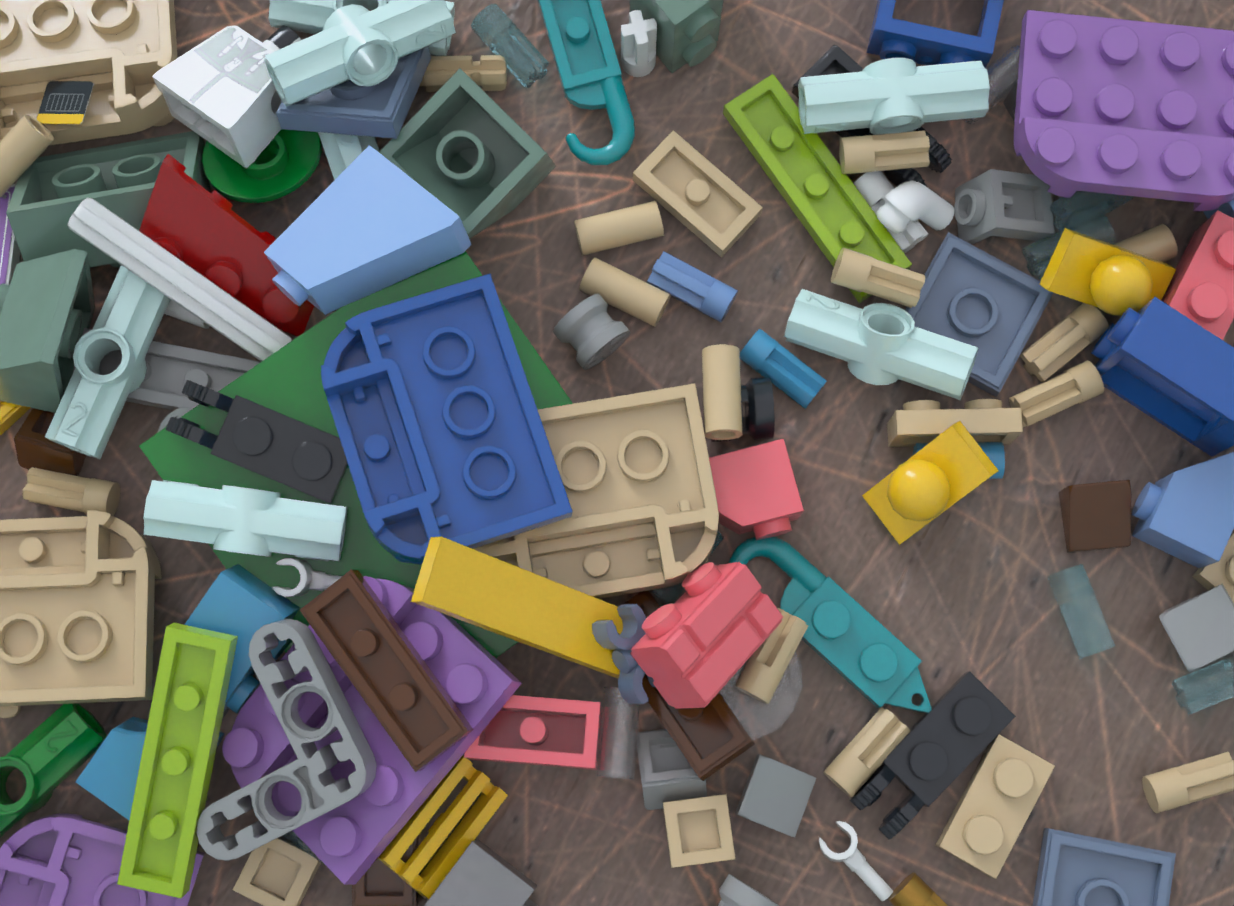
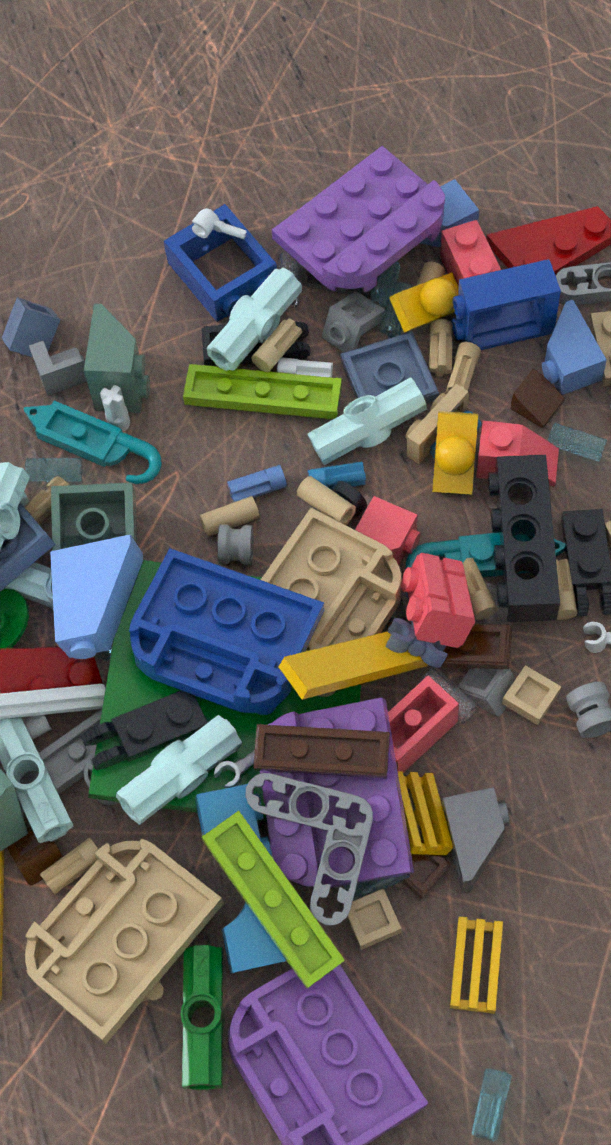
camera: 45 degrees left, 15 degrees down
(619, 228) = (195, 494): tan axle -> none
(697, 193) = (213, 444): tan plate -> none
(775, 795) = (544, 648): light grey slope -> none
(877, 278) = (334, 395): tan piece -> none
(914, 202) = (313, 353): white arm -> none
(965, 607) = (524, 598): none -> black brick
(995, 556) = (513, 440): none -> coral slope

